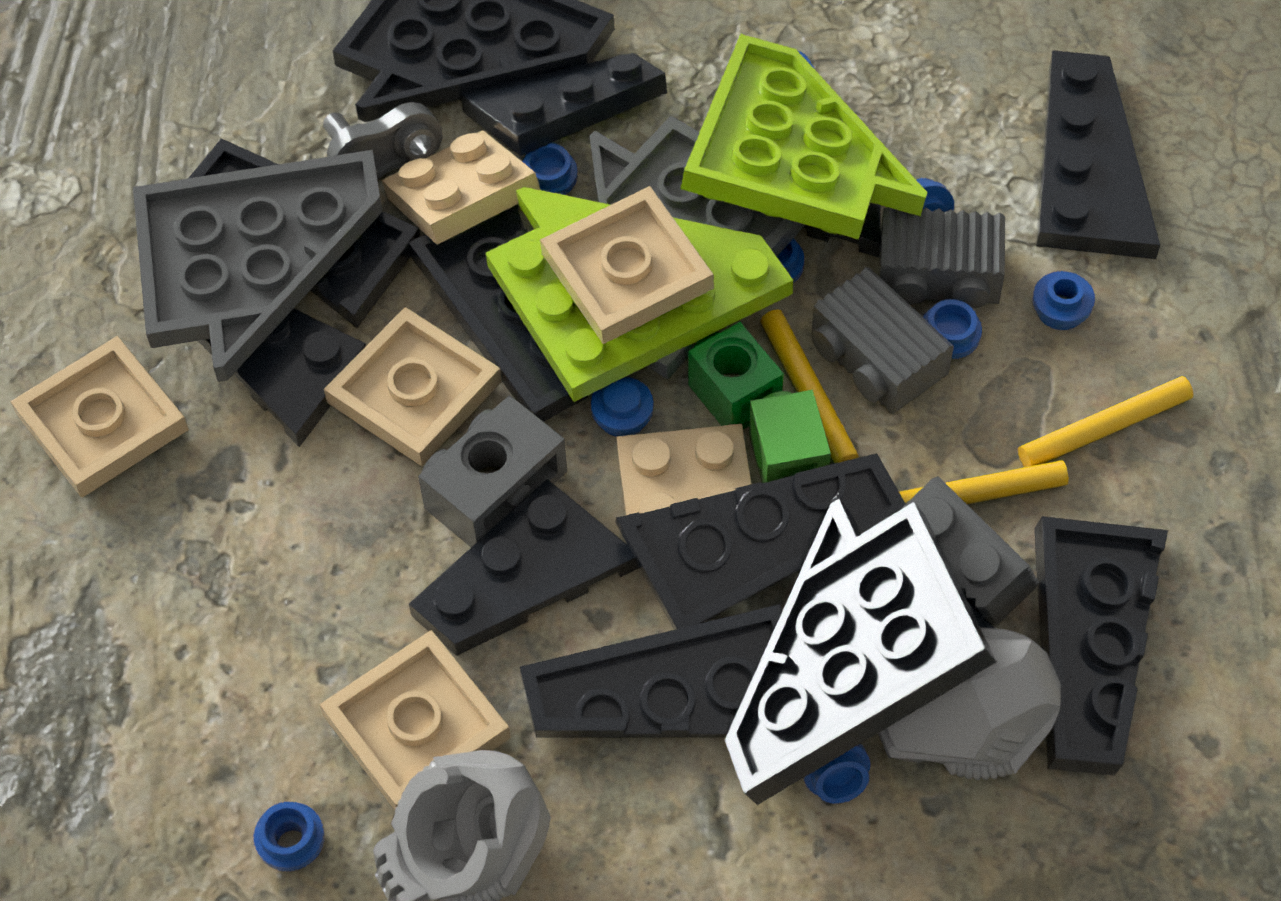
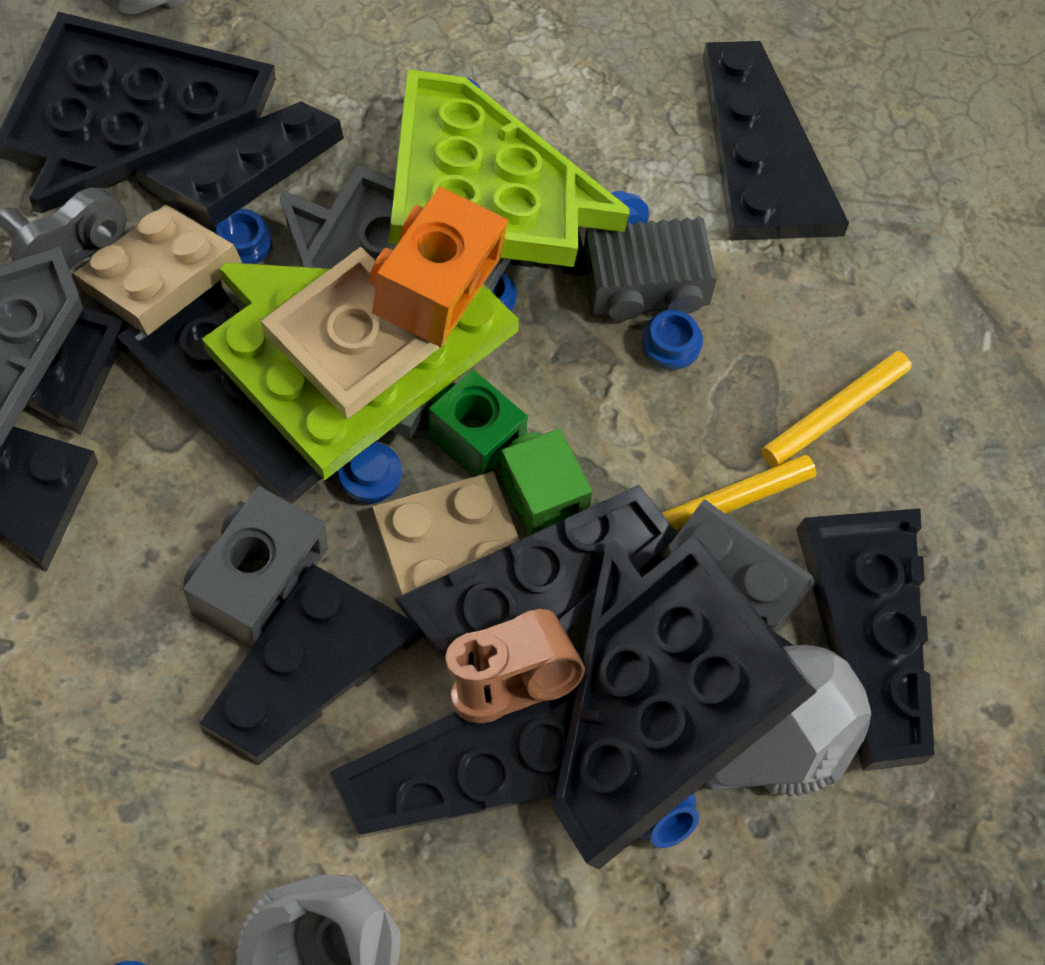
camera: 20 degrees left, 5 degrees up
(412, 711) = (231, 845): tan plate -> none
(413, 386) = (152, 488): tan plate -> none
(717, 211) = (437, 265): none -> orange brick
(717, 594) = (516, 661): none -> nougat piece
(805, 379) = (545, 415): yellow bar -> none
(880, 341) = (609, 363): dark grey brick -> none
(1060, 312) = (766, 304): blue plate -> none

